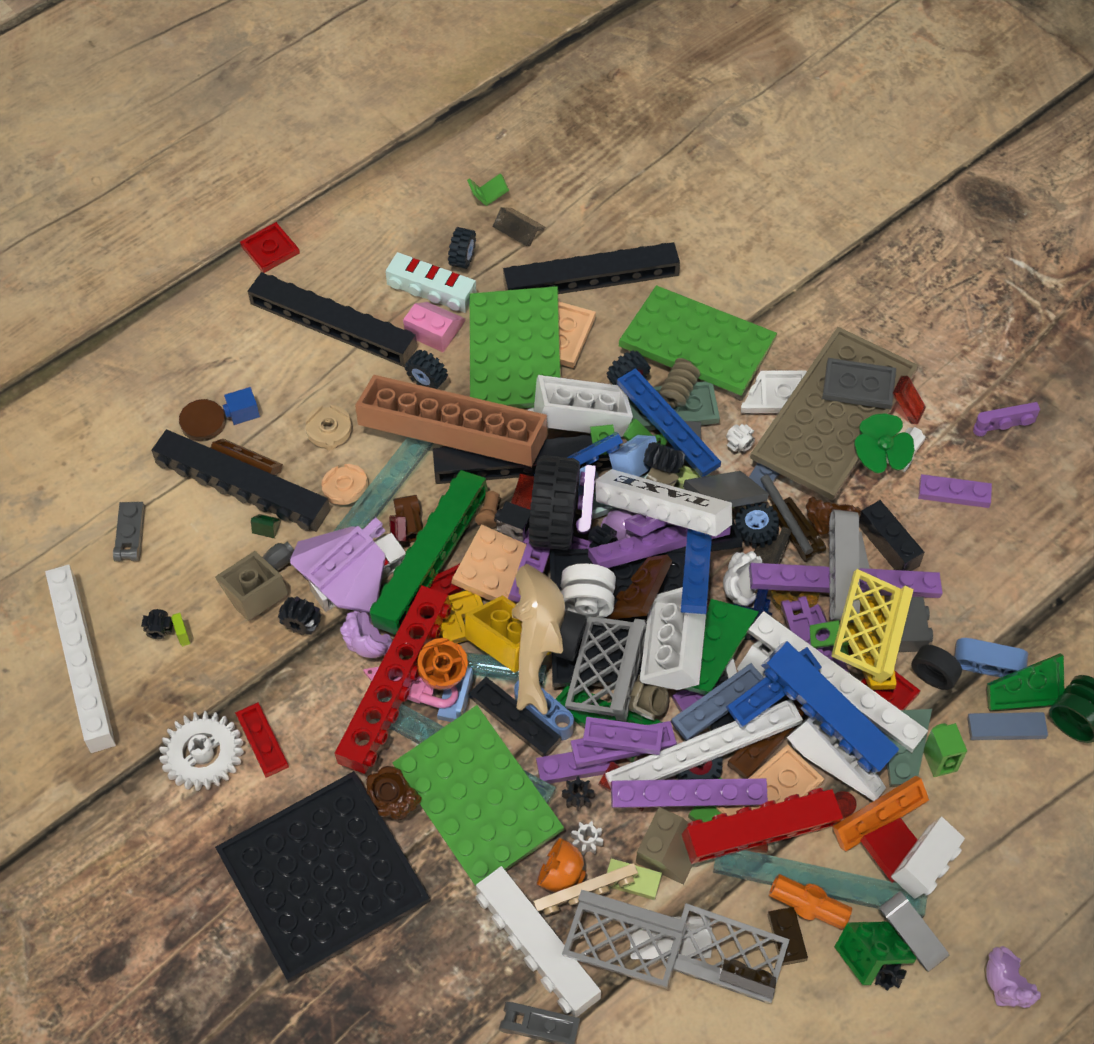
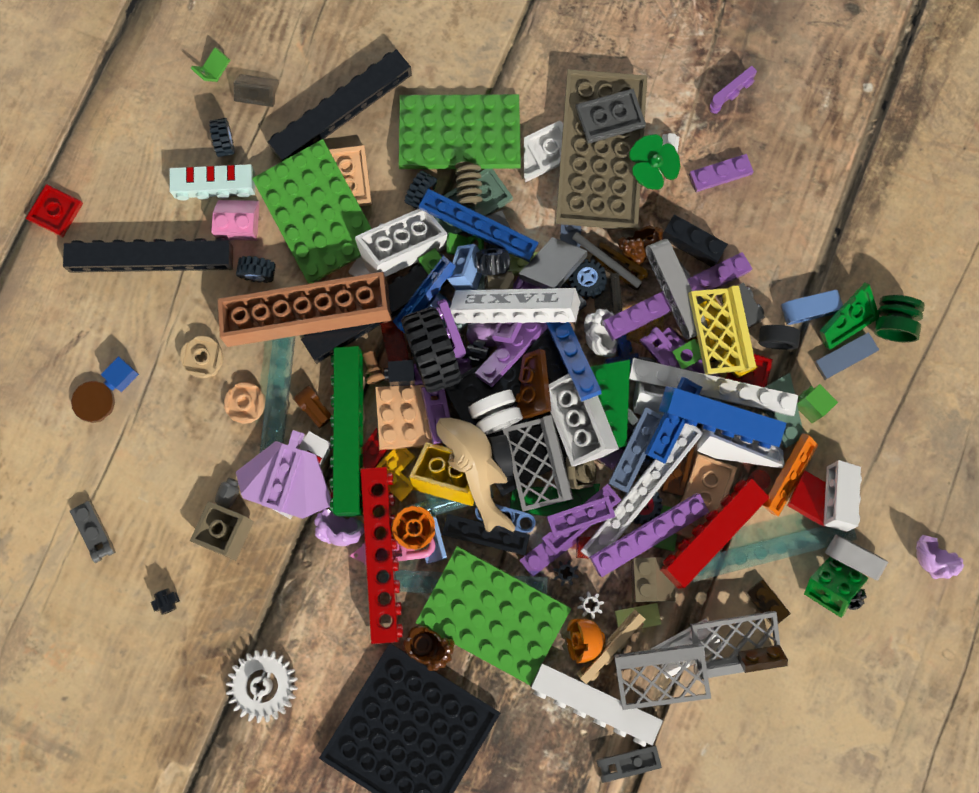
camera: 30 degrees left, 20 degrees up
(80, 659) = (119, 661): white brick -> none
(180, 629) = (186, 596): lime tile -> none
(241, 480) = (157, 442): black brick -> none
(247, 456) = (150, 419): reddish brown plate -> none
(262, 740) = (302, 651): red tile -> none
(265, 525) = (200, 469): dark green slope -> none
(299, 615) = (275, 538): black gear -> none
(398, 527) = (310, 422): dark red tile -> none
(740, 438) = (538, 207): white gear -> none
(810, 901) = (774, 572): orange piece -> none
(909, 399) = (653, 110): clear red tile -> none

